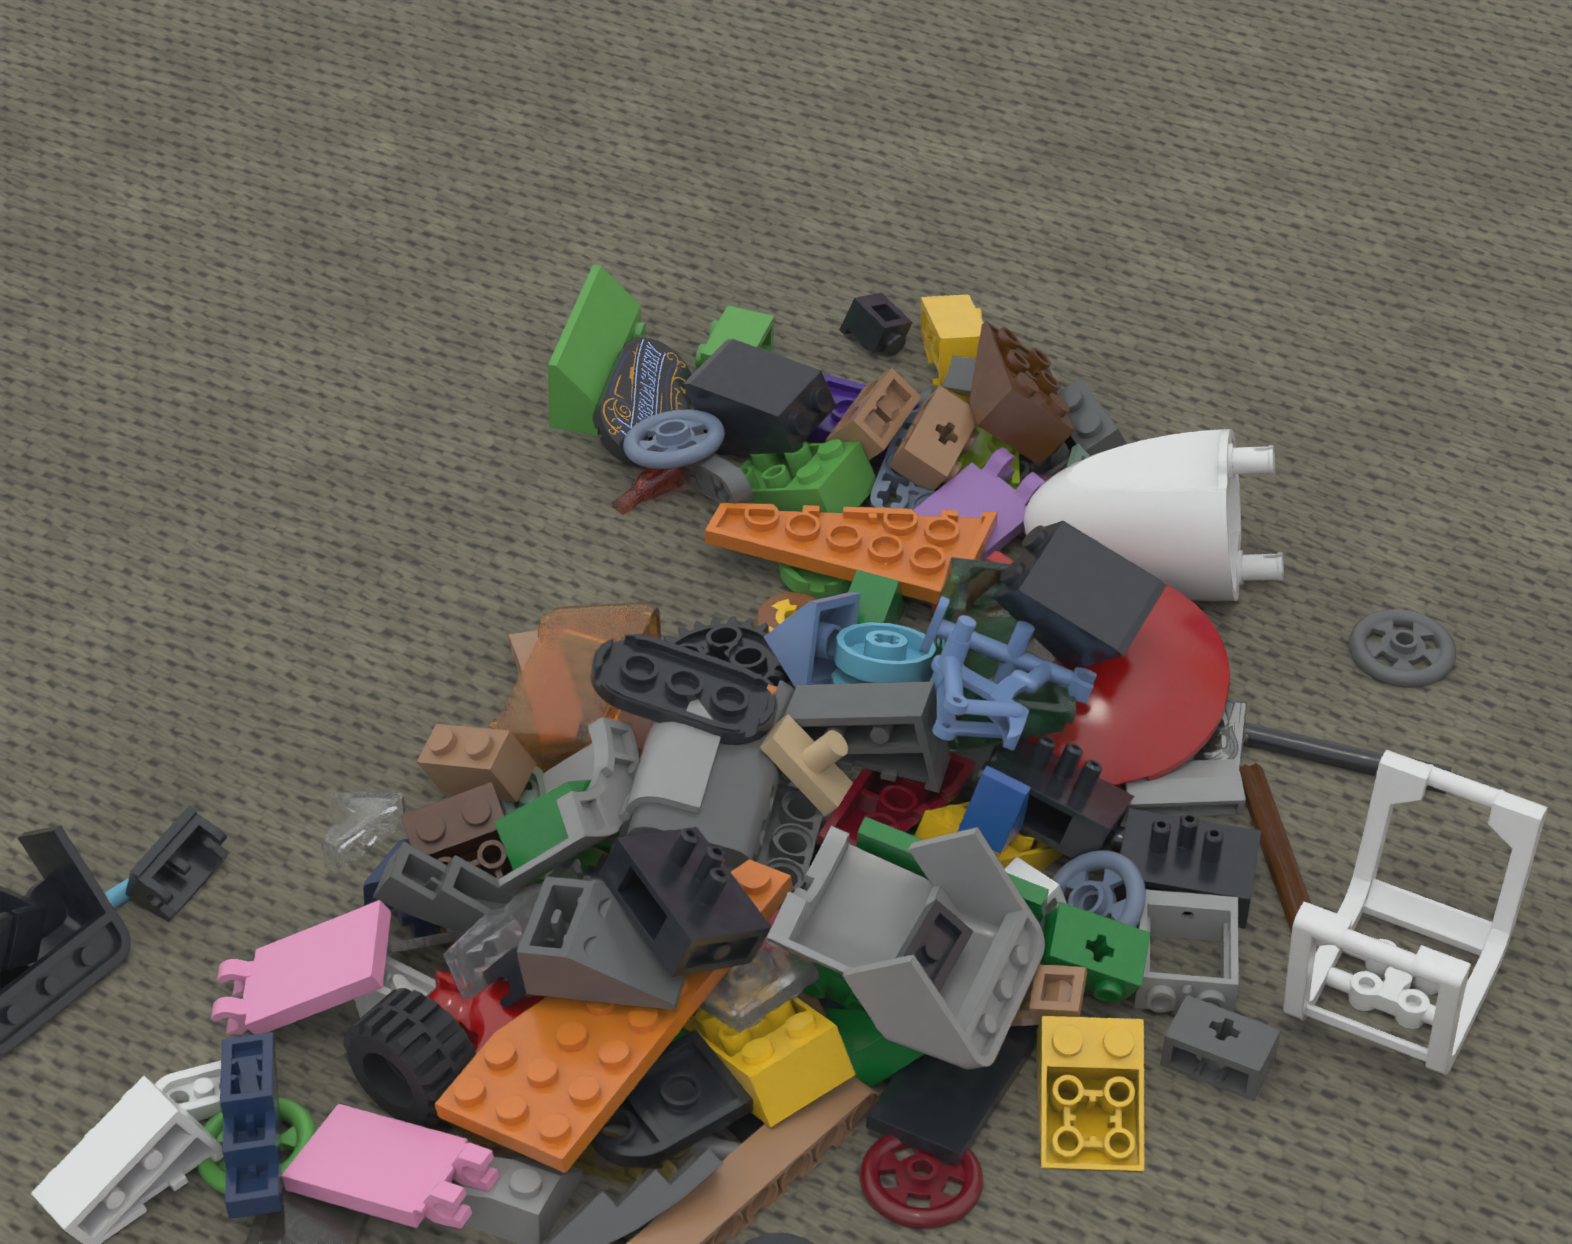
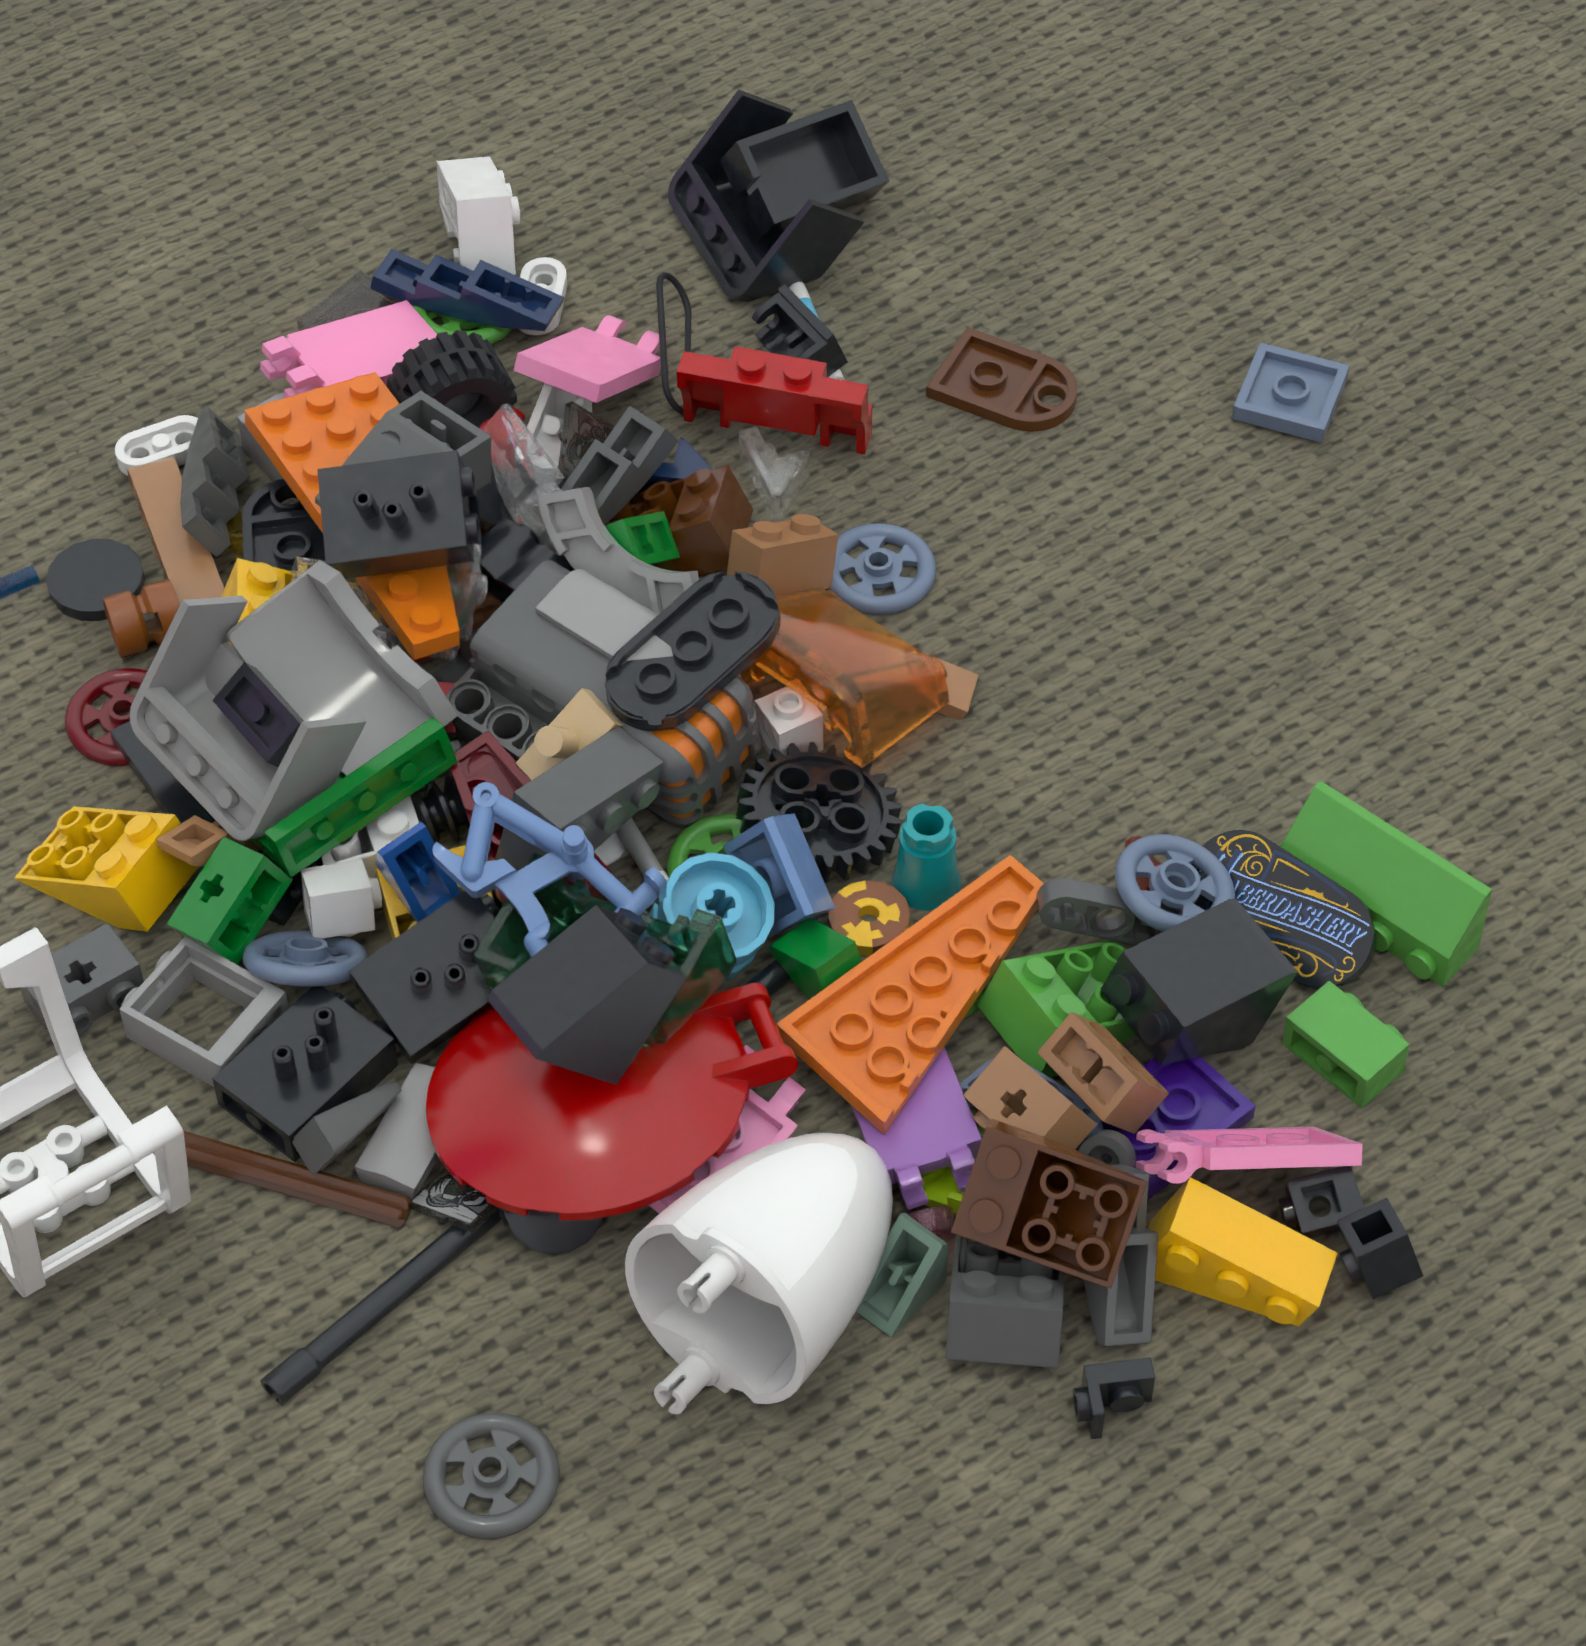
camera: 120 degrees right, 10 degrees up
(69, 549) = (1290, 392): none -> sand blue plate
(142, 735) = (1004, 383): none -> reddish brown tile
(145, 985) = (662, 332): none -> black piece
(283, 834) = (775, 394): none -> red bracket
(390, 720) = (906, 590): none -> sand blue plate
(731, 579) = (927, 858): none -> teal plant
(809, 1191) = (126, 618): none -> dark orange wheel
(874, 334) = (1245, 1150): none -> bright pink tile
(901, 282) = (1378, 1249): none -> black brick
(1103, 381) = (1114, 1384): none -> black bracket
(1235, 793) = (336, 1128): none -> dark grey slope

